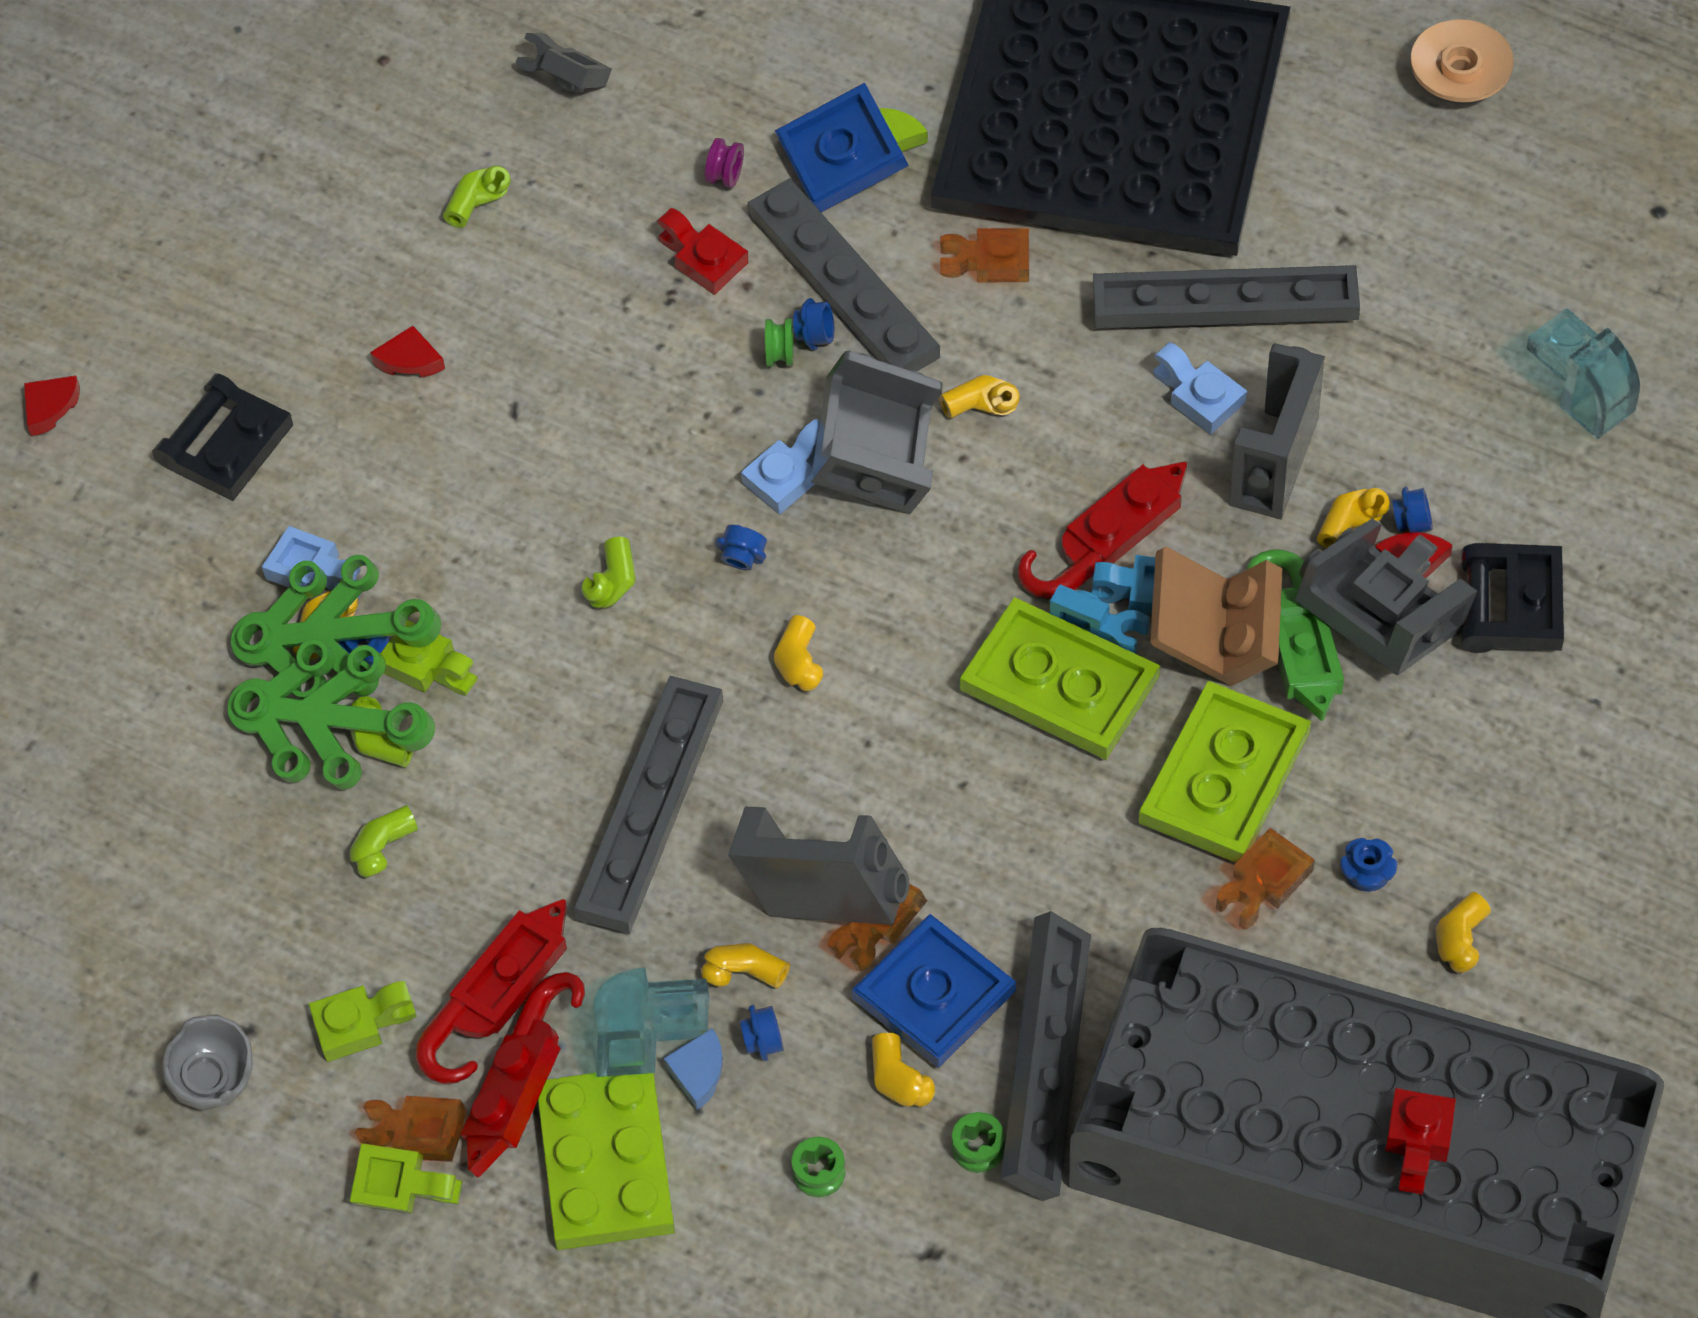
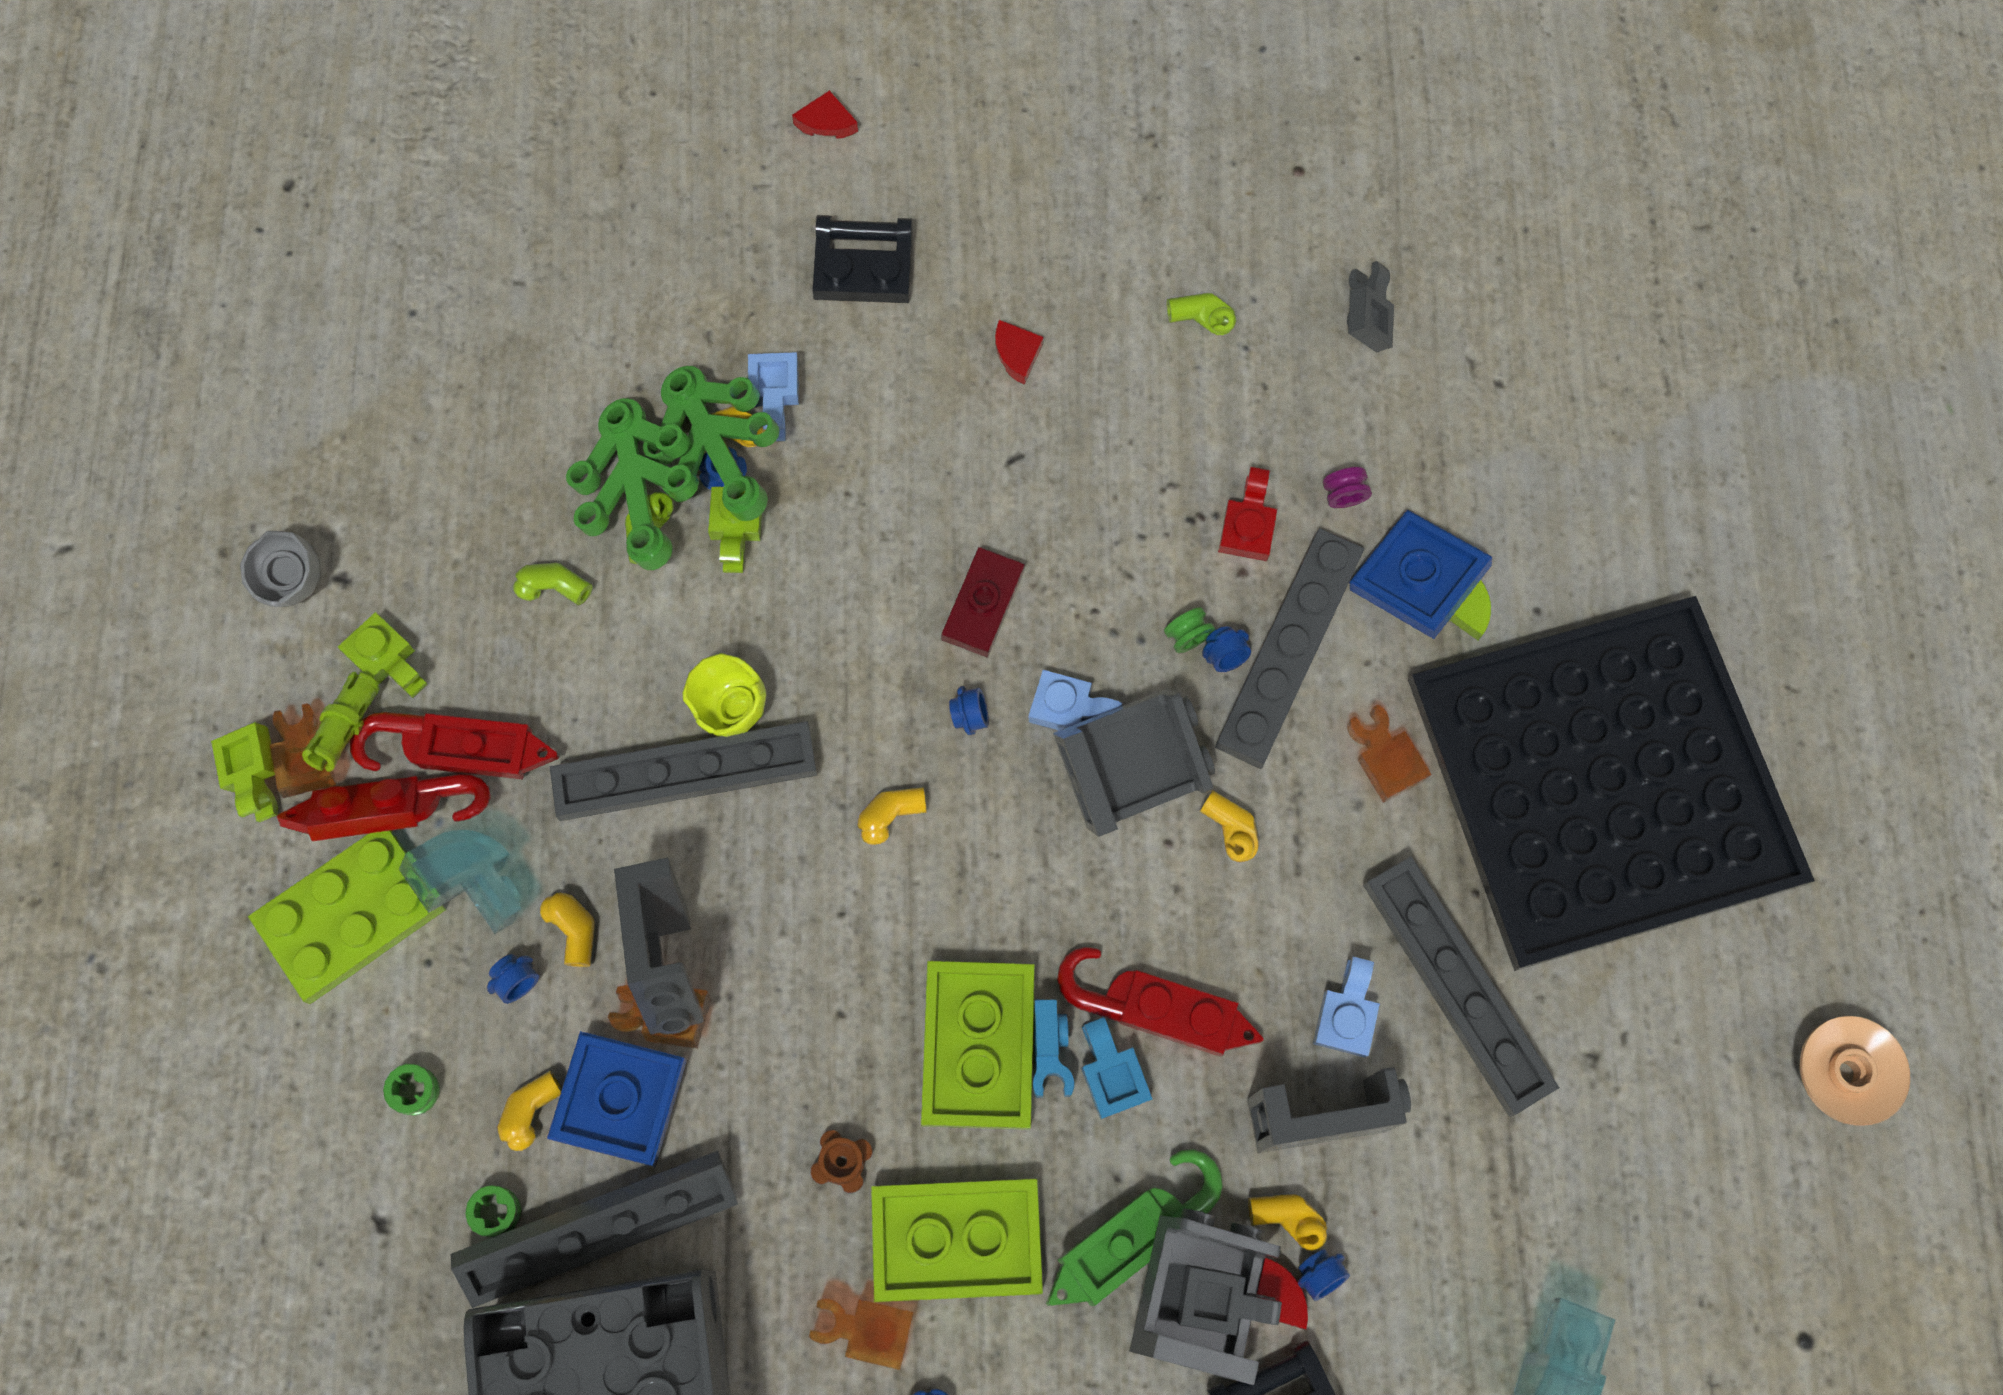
camera: 55 degrees right, 15 degrees up
(410, 1069) = (340, 721): none -> lime pin
(601, 729) = (724, 695): none -> neon yellow hair
(616, 580) = (887, 627): lime arm -> none
(642, 494) = (983, 602): none -> dark red plate
(697, 1067) = (459, 943): medium blue tile -> none
(1100, 820) = (827, 1169): none -> dark orange plate
(1214, 621) = (1102, 1153): medium nougat bracket -> none

